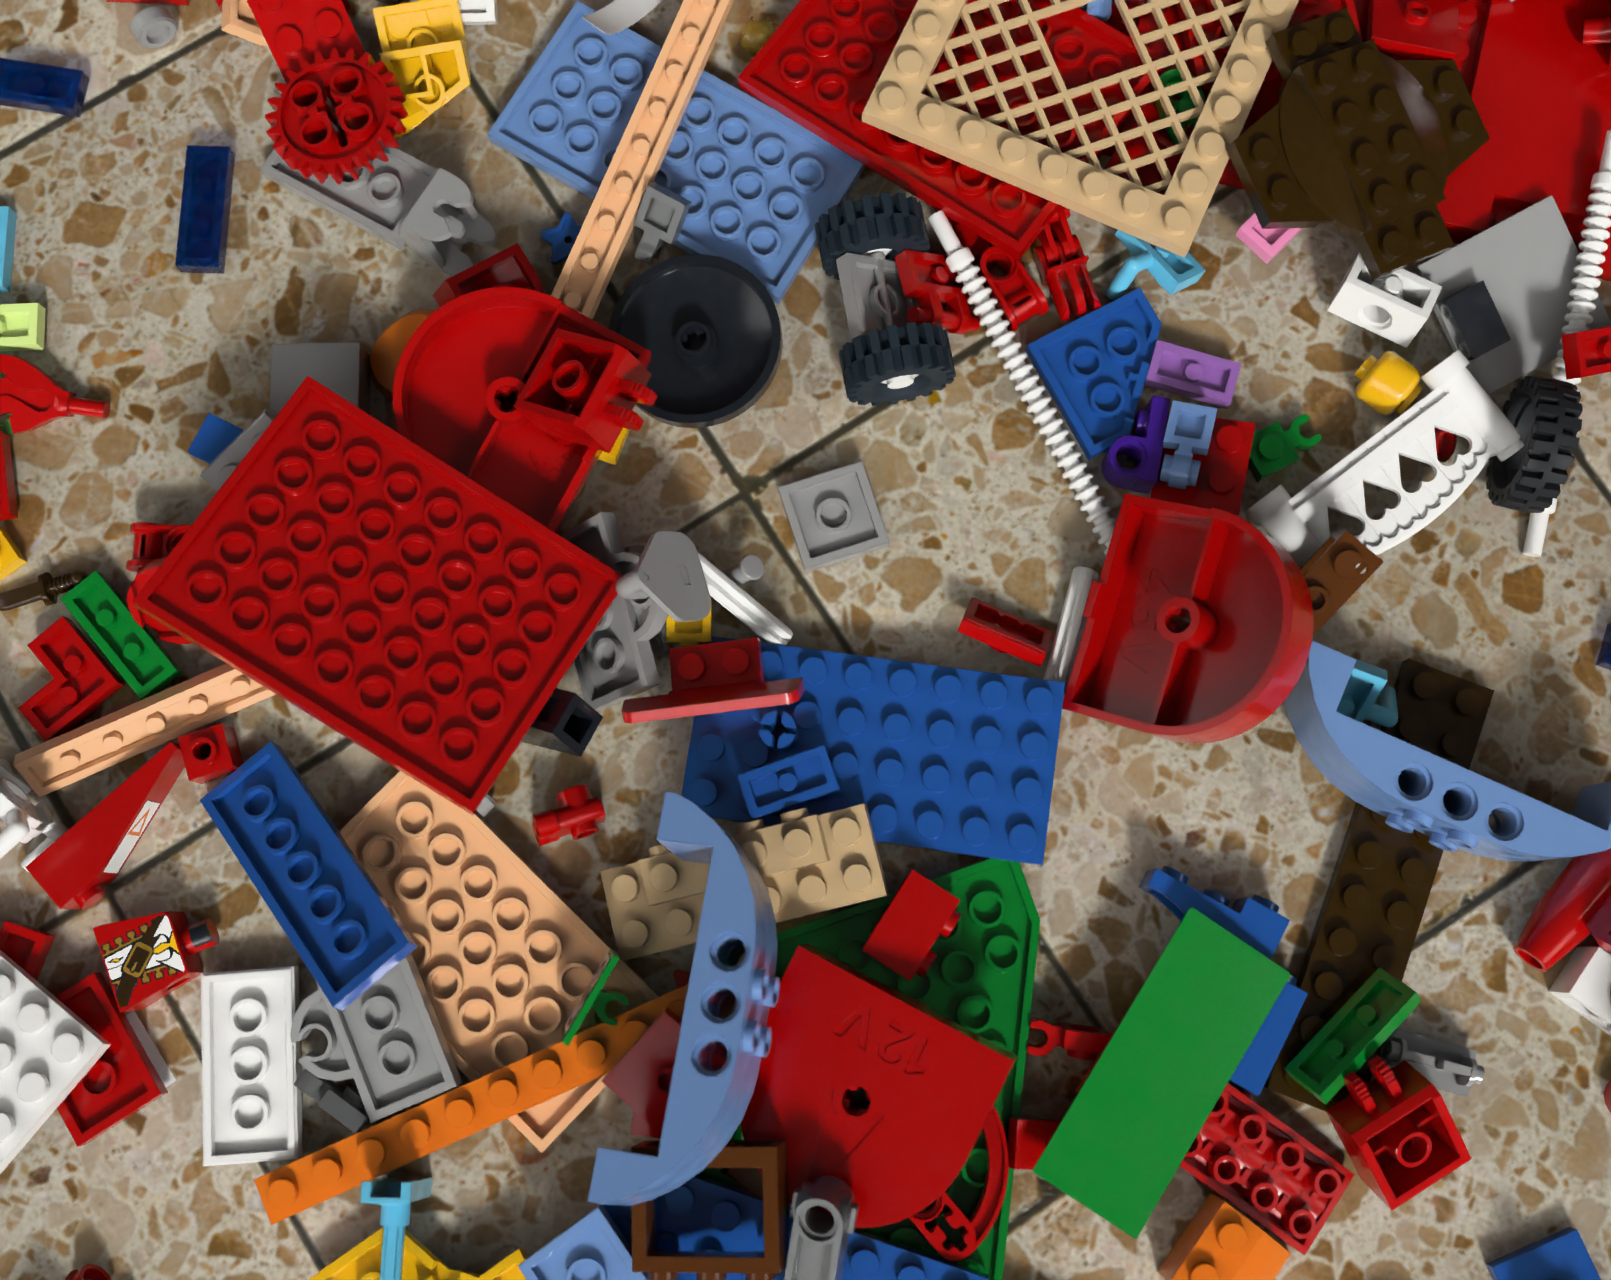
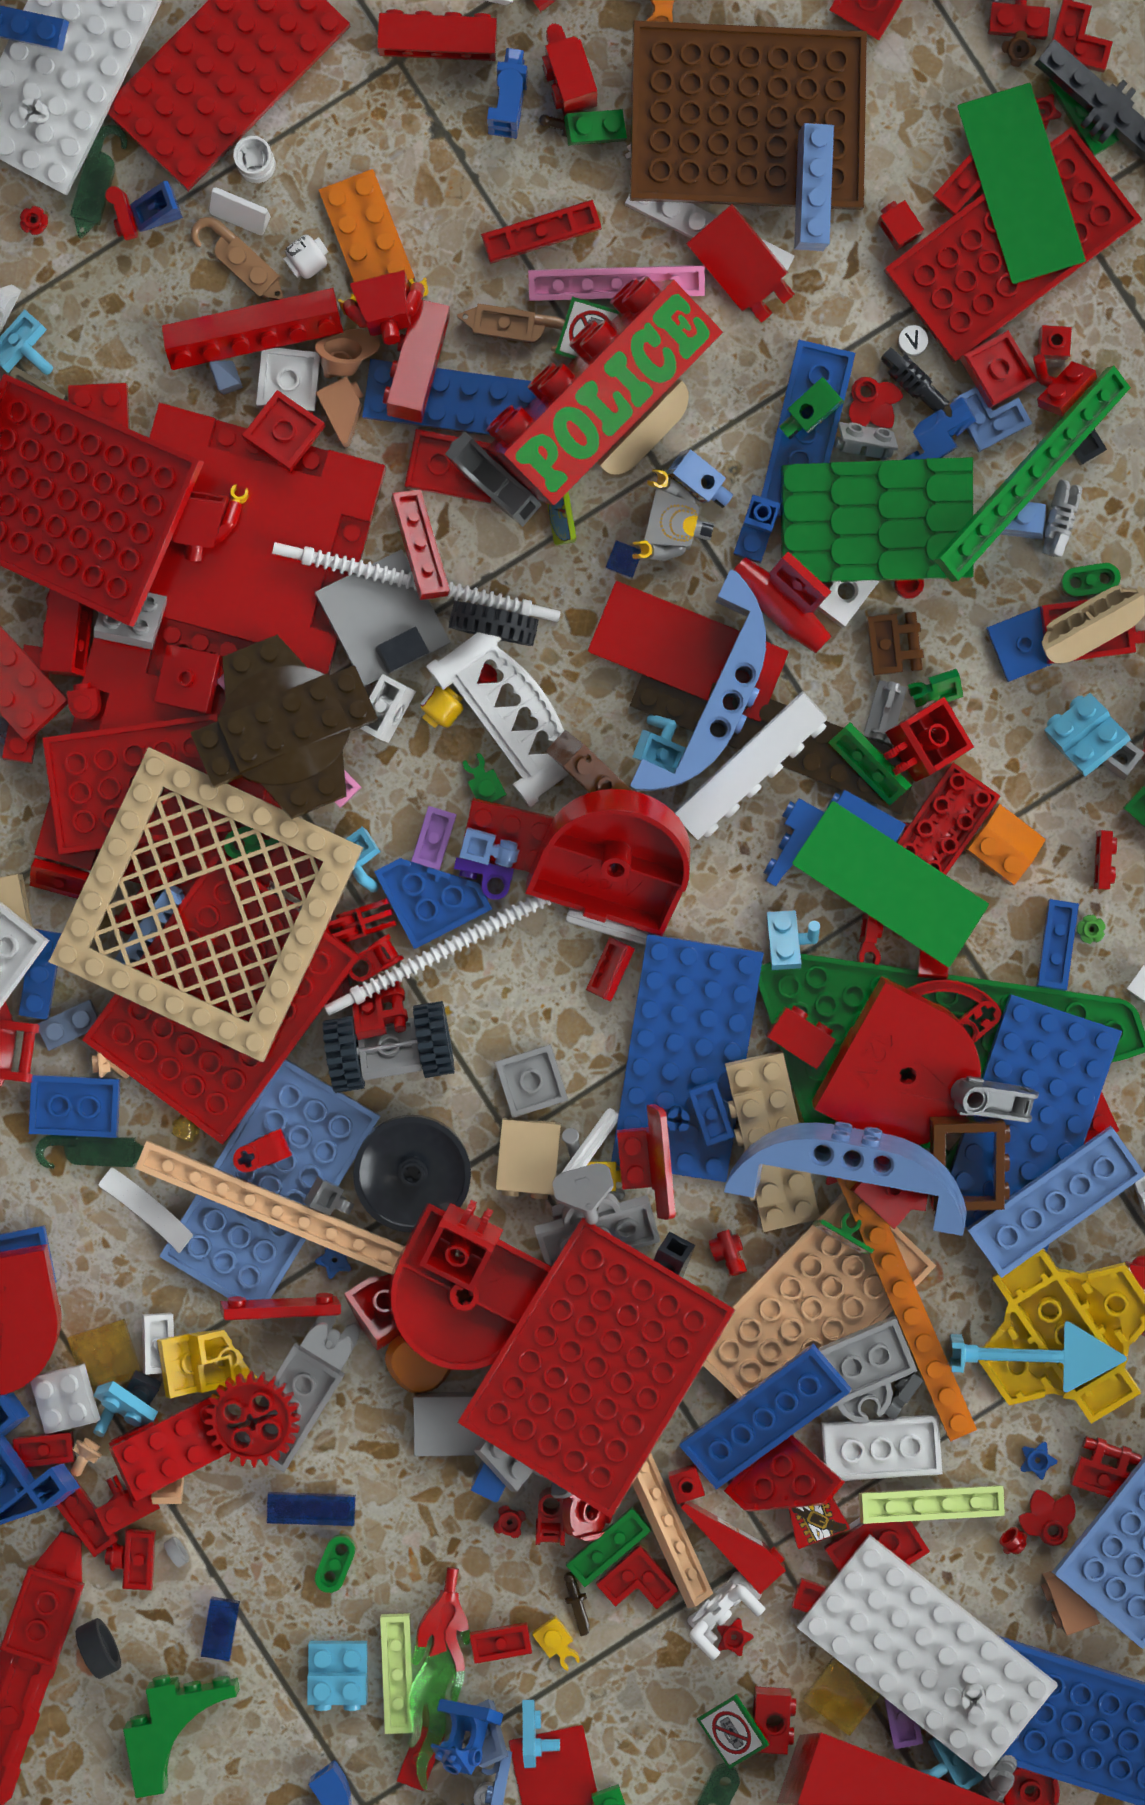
camera: 90 degrees left, 10 degrees up
(126, 244) = (335, 1562): none -> green plate
(152, 1149) = (931, 1504): none -> yellowish green plate
(159, 484) = (513, 1529): none -> red plate
(205, 908) = (785, 1479): none -> red plate
(498, 95) = (239, 1308): none -> red plate
(720, 507) = (528, 1157): none -> tan brick
(727, 128) = (266, 1150): none -> red piece
(1061, 902) = (786, 941): none -> medium azure plate
(1339, 844) = (750, 765): none -> white brick
(1487, 1163) = (941, 685): none -> green plate
(1511, 722) = (676, 646): none -> red sticker
(1537, 1060) = (886, 647): none -> reddish brown plate

